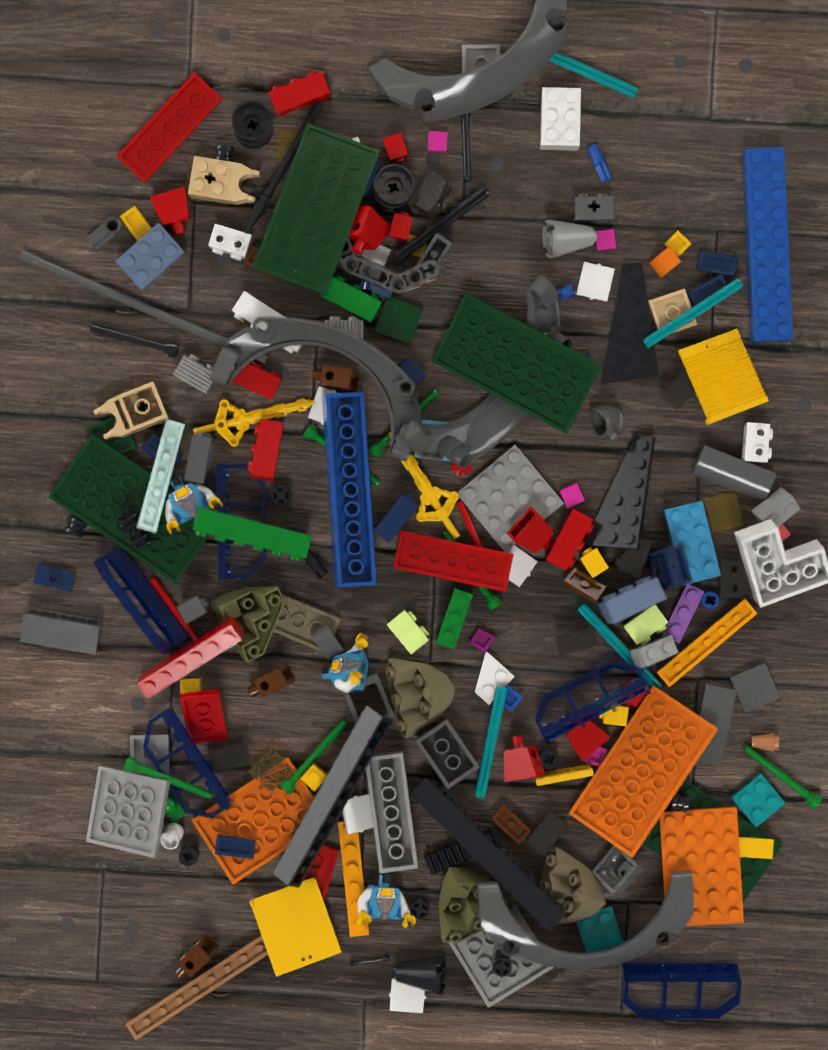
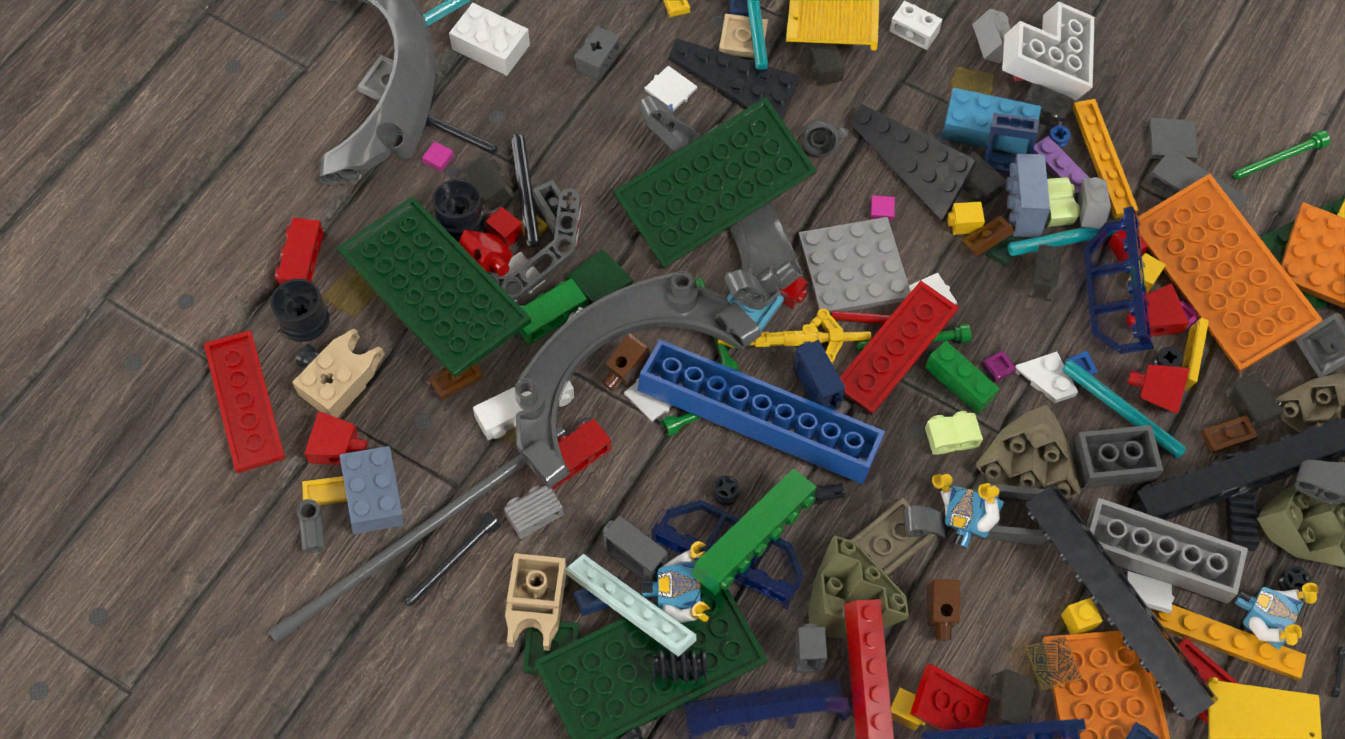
camera: 65 degrees left, 25 degrees down
(173, 608) = (772, 684): red bar -> none
(230, 242) = (409, 399): white brick -> none
(243, 420) = (615, 488): yellow bar -> none
(261, 206) = (382, 331): black piece -> none
(266, 450) = (666, 476): red brick -> none
(289, 784) = (1080, 650): green piece -> none
(380, 291) = (556, 277): dark blue plate -> none
(395, 149) = (420, 189): red brick -> none
(532, 531) = (903, 252): red torso -> none
(566, 237) = (610, 88): light grey cone -> none
(570, 540) = (930, 229): red brick -> none
(599, 163) = (555, 29): blue axle -> none
(605, 240) = (634, 60): dark pink tile -> none
(665, 262) = (688, 18): orange brick -> none
(680, 802) = (1278, 248): black wheel -> none
(733, 473) = (936, 57): dark grey brick -> none
(757, 800) = (1297, 186): teal plate -> none
(766, 742) = (1238, 151): nougat cone -> none

